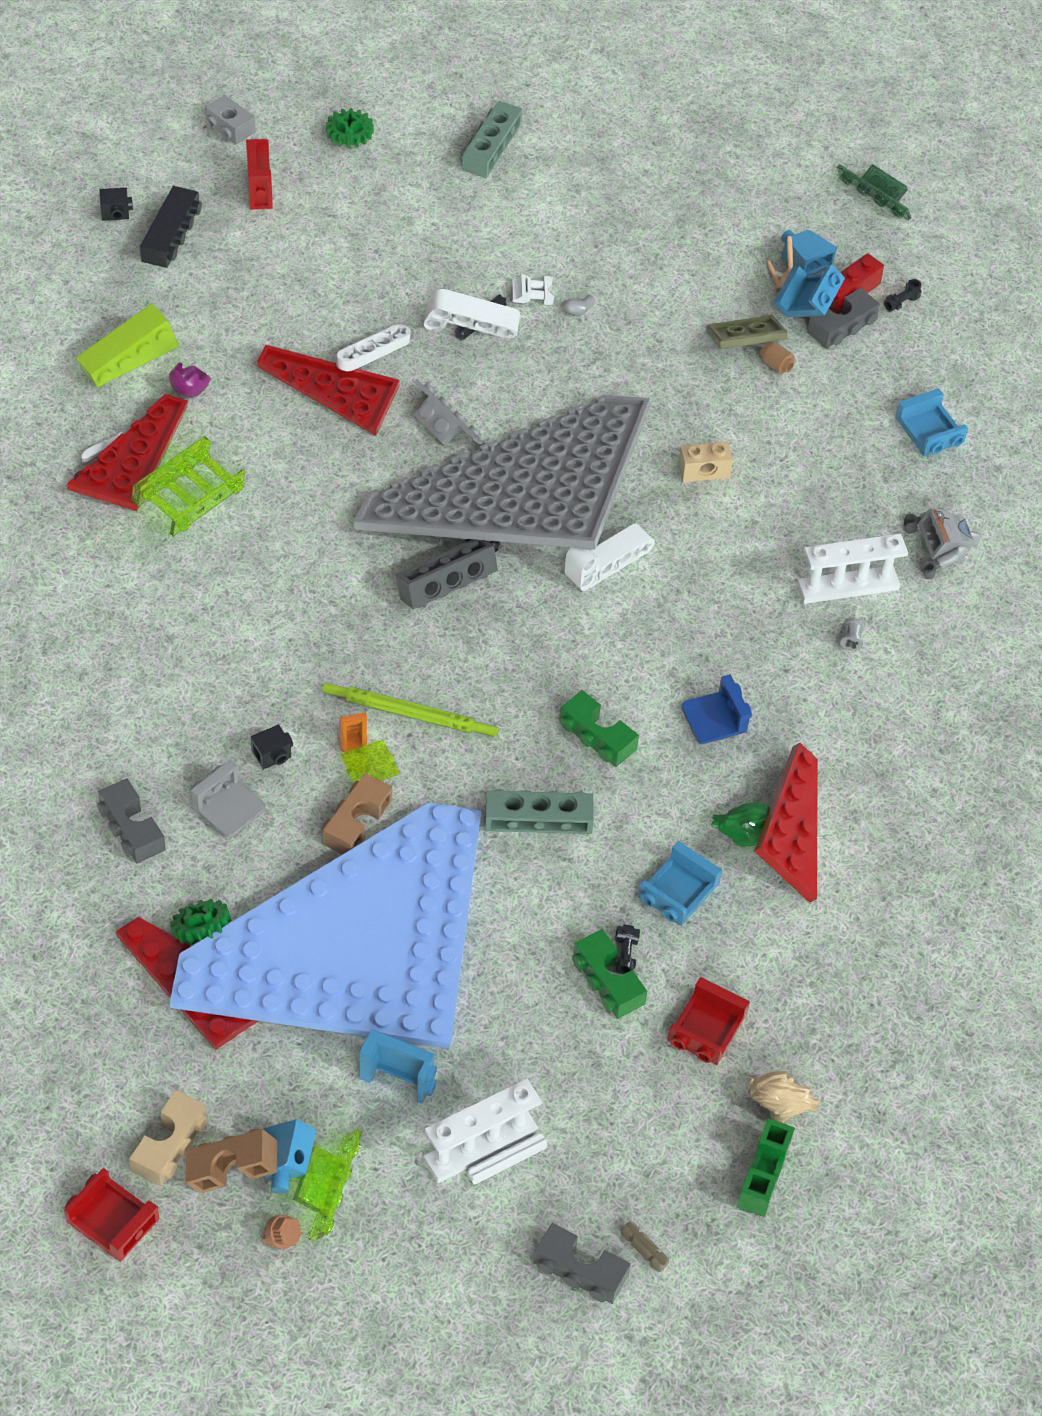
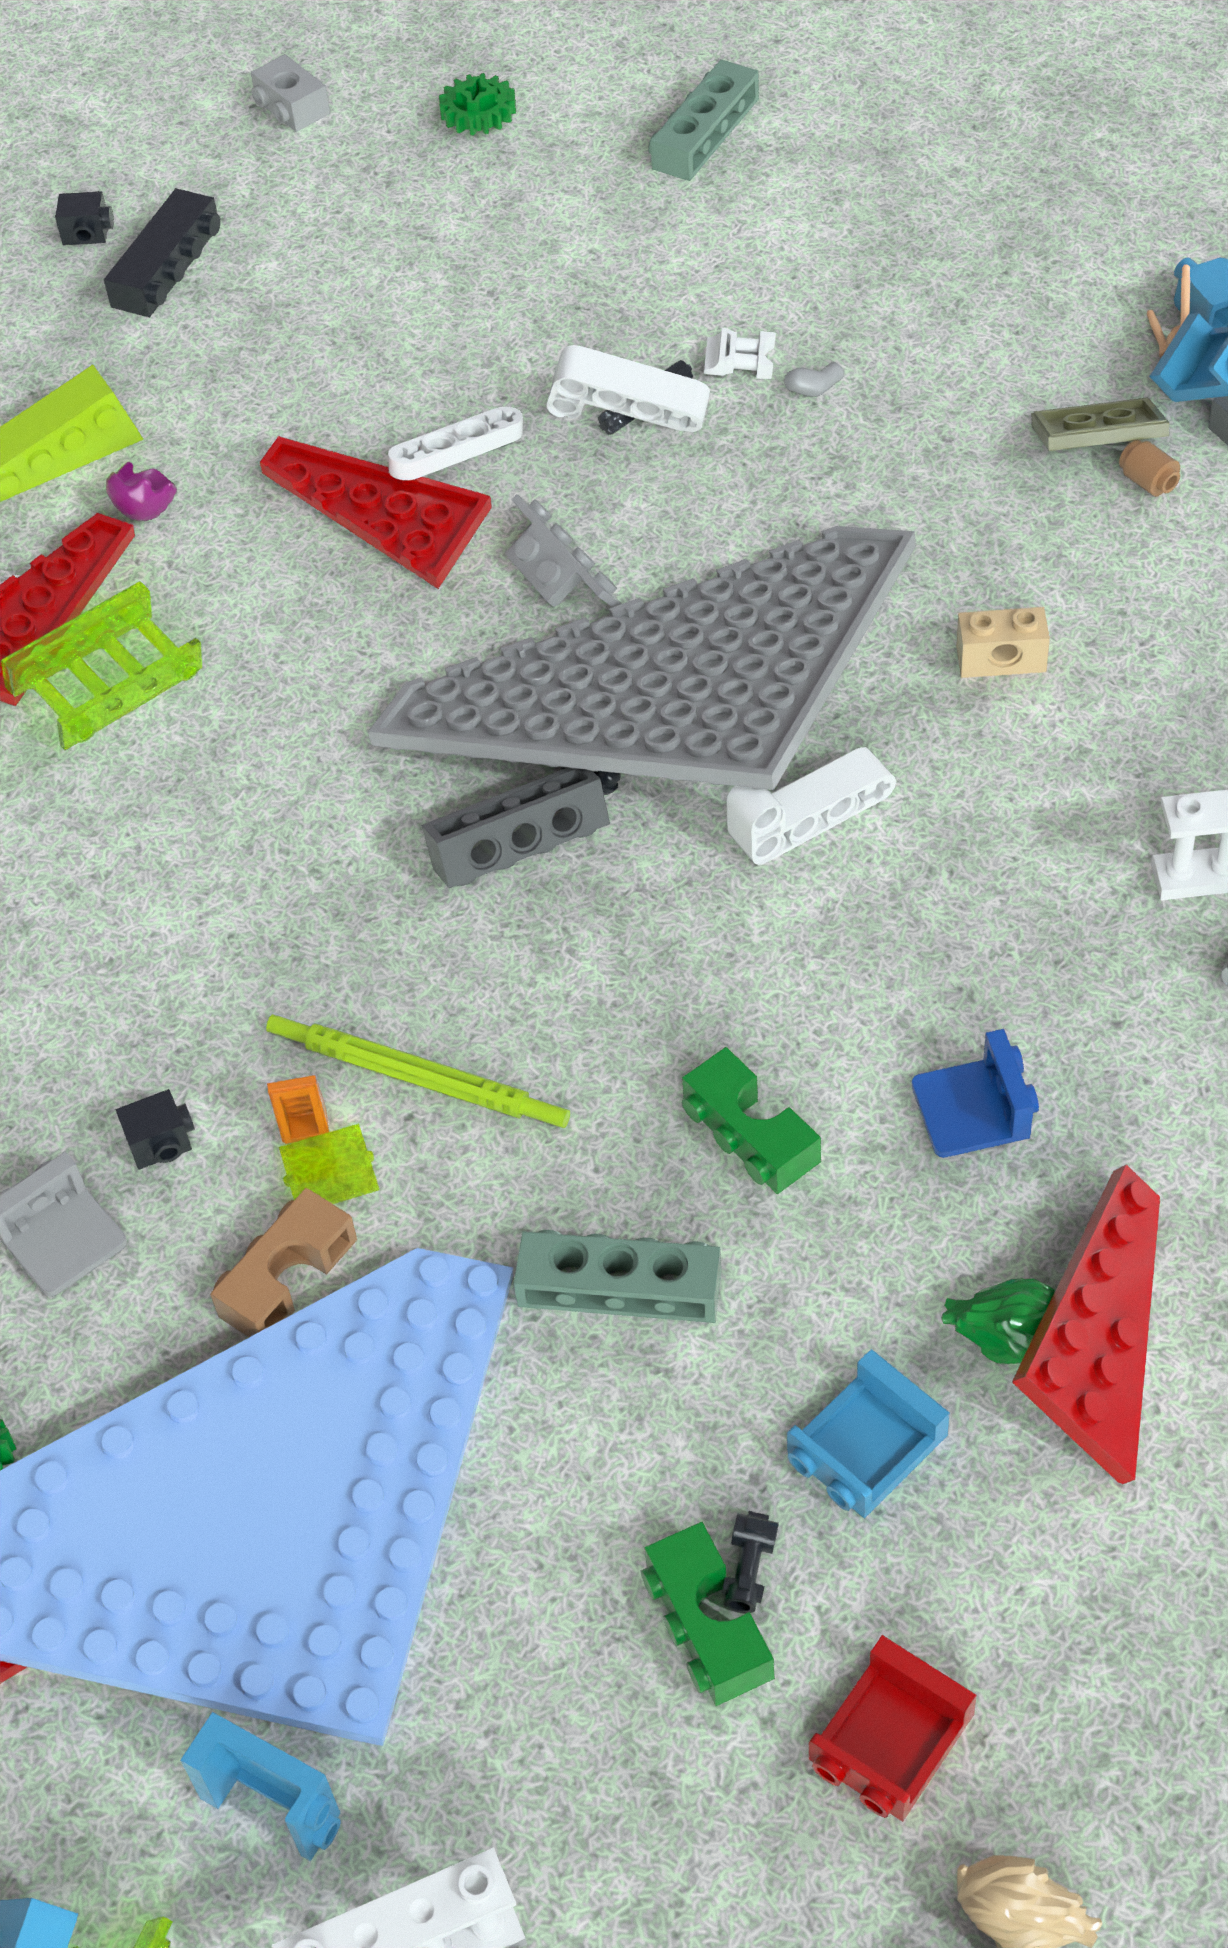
camera: 15 degrees right, 0 degrees up
(259, 174) = (311, 165): red panel -> none

